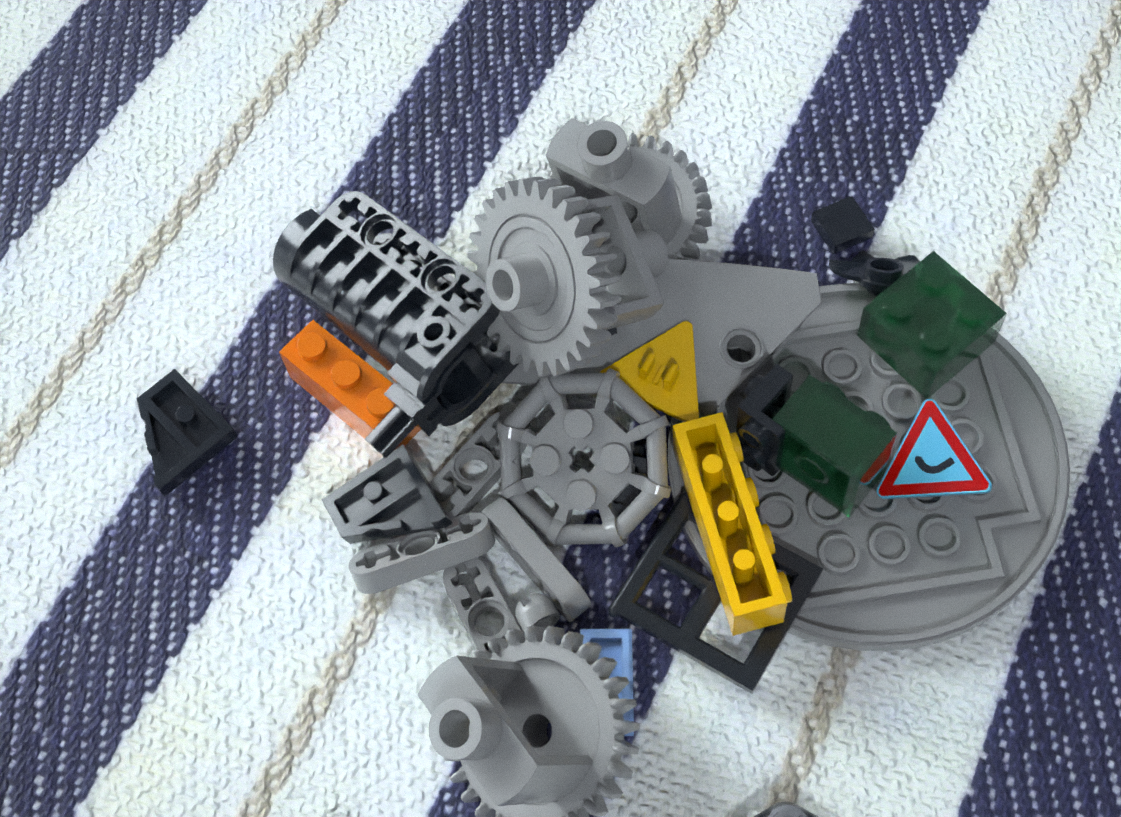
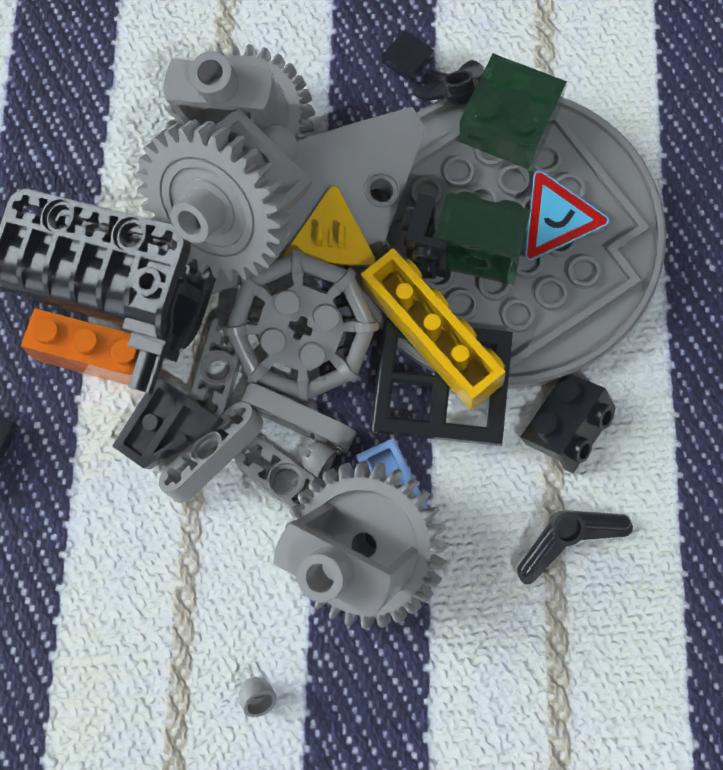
camera: 25 degrees left, 10 degrees up
(848, 703) = (570, 421): none -> black bracket

